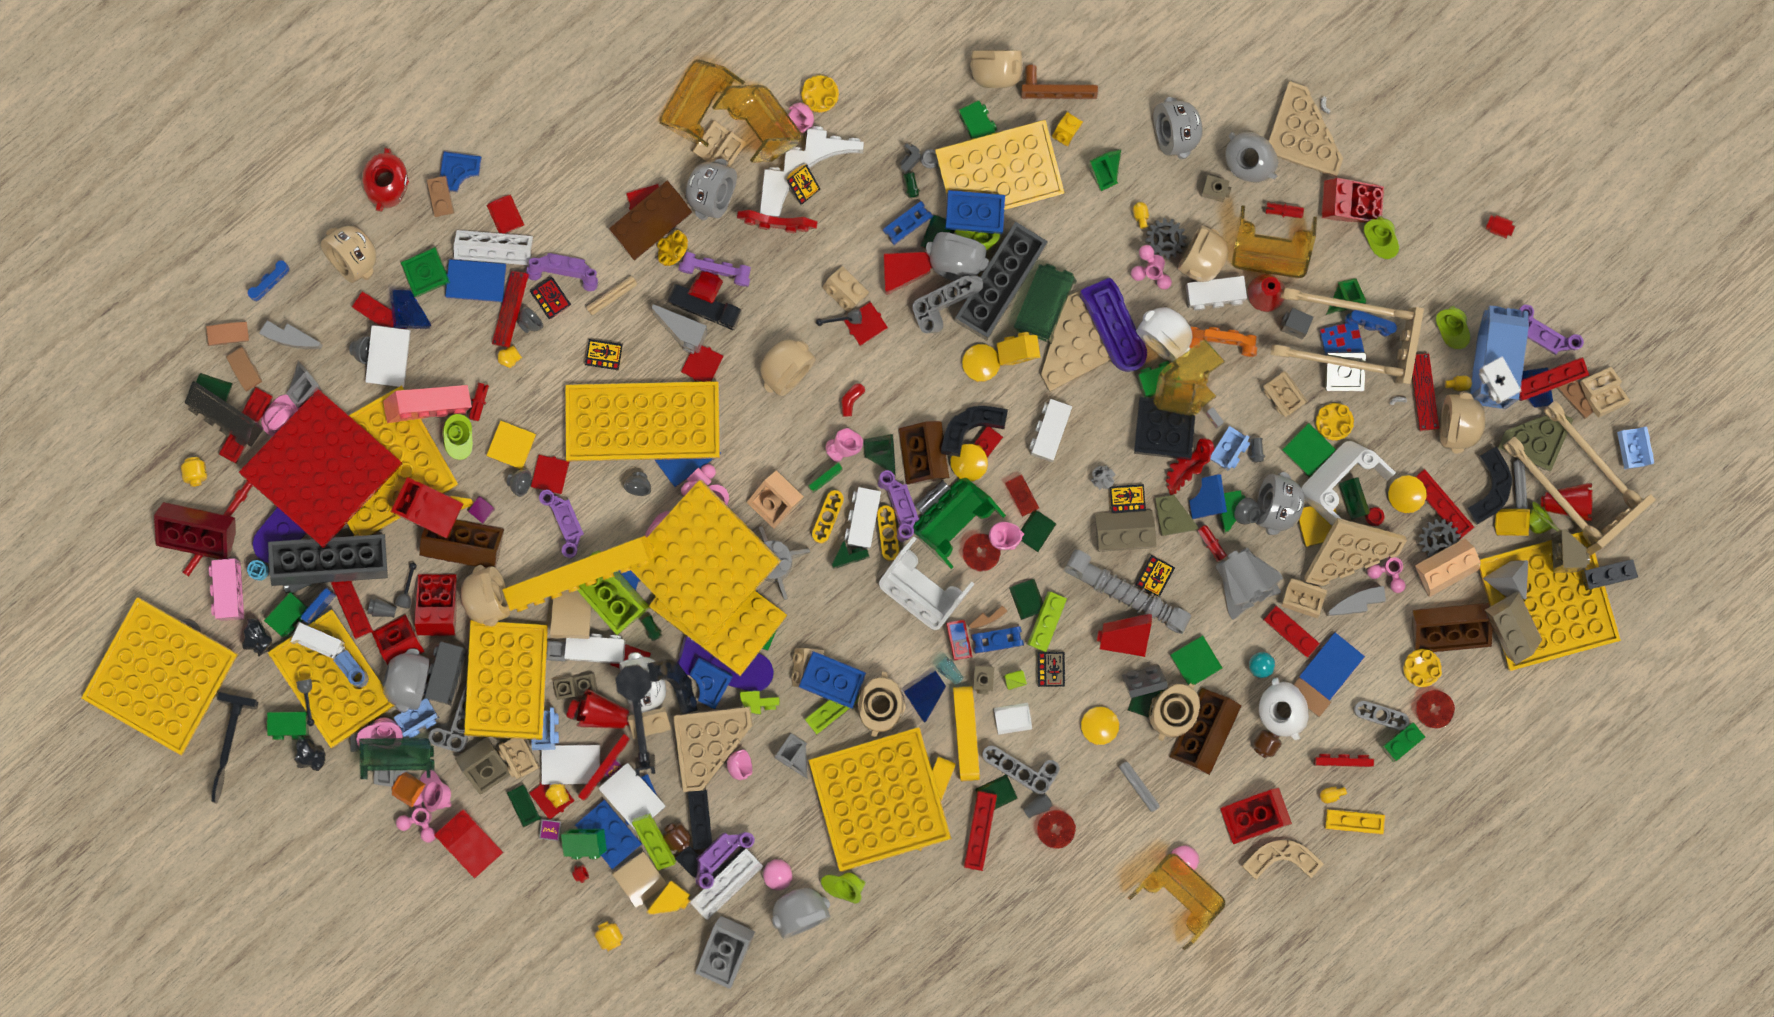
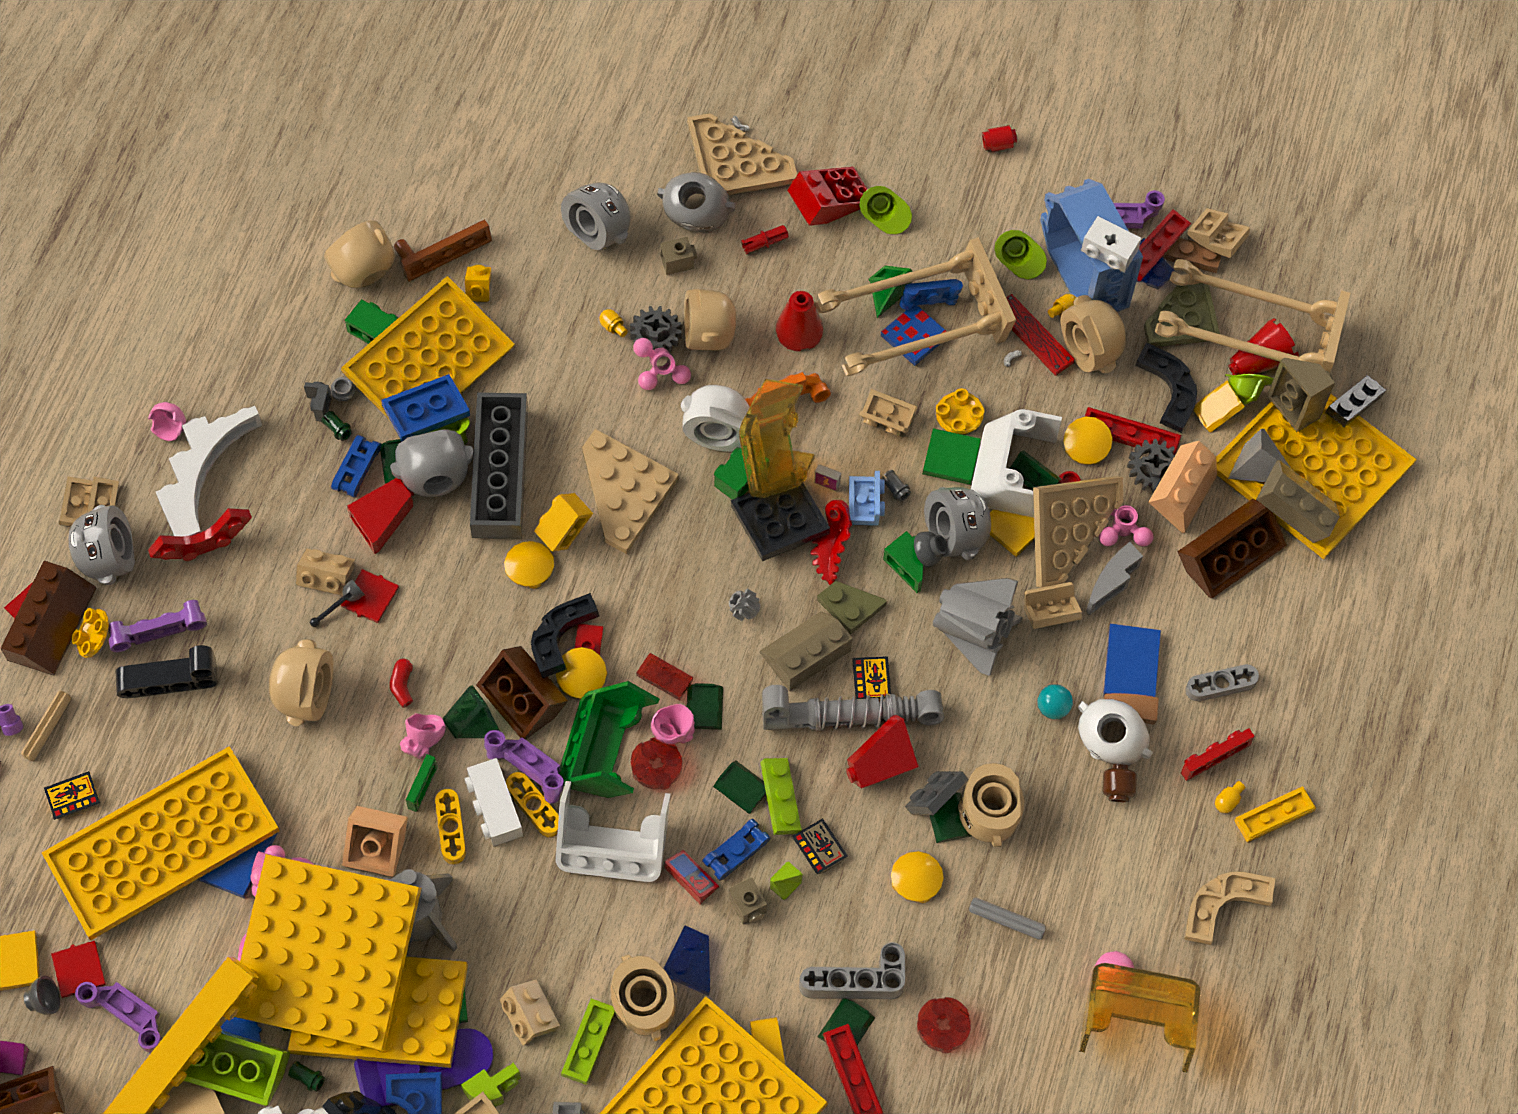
camera: 30 degrees left, 20 degrees down
(638, 484) = (195, 917): dark grey piece -> none
(684, 330) = (150, 710): light grey slope -> none
(694, 98) = (31, 460): clear yellow windscreen -> none
(702, 365) = (198, 740): red piece -> none
(706, 286) = (156, 652): red piece -> none
(764, 116) = (119, 440): clear yellow windscreen -> none
(803, 183) = (209, 484): piece -> none
(820, 93) = (177, 387): yellow dish -> none
(832, 680) = (566, 1004): blue tile -> none
(843, 557) = (499, 859): dark green slope -> none
(932, 496) = (561, 734): dark grey pin -> none
(947, 299) = (464, 488): light grey beam -> none
(949, 670) = (701, 915): clear light blue cone -> none
(966, 733) = (767, 976): yellow beam -> none
(983, 620) = (706, 834): medium nougat slope -> none
(1013, 718) = (811, 929): white piece -> none
(1039, 805) = (905, 1009): dark grey cone -> none
(1045, 302) = (562, 458): clear green panel -> none
(1050, 430) = (653, 589): white brick -> none
(1106, 169) = (543, 299): green slope -> none
(1114, 325) = (656, 443): dark purple piece -> none
(1127, 498) = (786, 614): piece -> none
(1196, 661) = (978, 741): green tile -> none
(1205, 739) = (1047, 823): reddish brown slope -> none
(1210, 498) = (879, 559): blue tile -> none
(1212, 543) = (911, 607): red axle -> none
(1216, 293) = (745, 353): white brick -> none
(1256, 815) = (1161, 871): red slope -> none
(1272, 254) = (770, 292): clear yellow windscreen -> none
(1291, 631) = (1062, 651): red plate -> none
(1296, 323) = (852, 333): dark grey brick -> none
(1345, 378) = (938, 360): plate -> none
(1403, 742) = (1266, 694): green brick -> none
(1422, 668) = (1230, 607): yellow dish -> none
(1445, 713) = (1274, 655): clear red plate -> none
(1520, 485) = (1197, 367): light grey axle -> none
(1635, 448) = (1290, 267): light blue bracket -> none

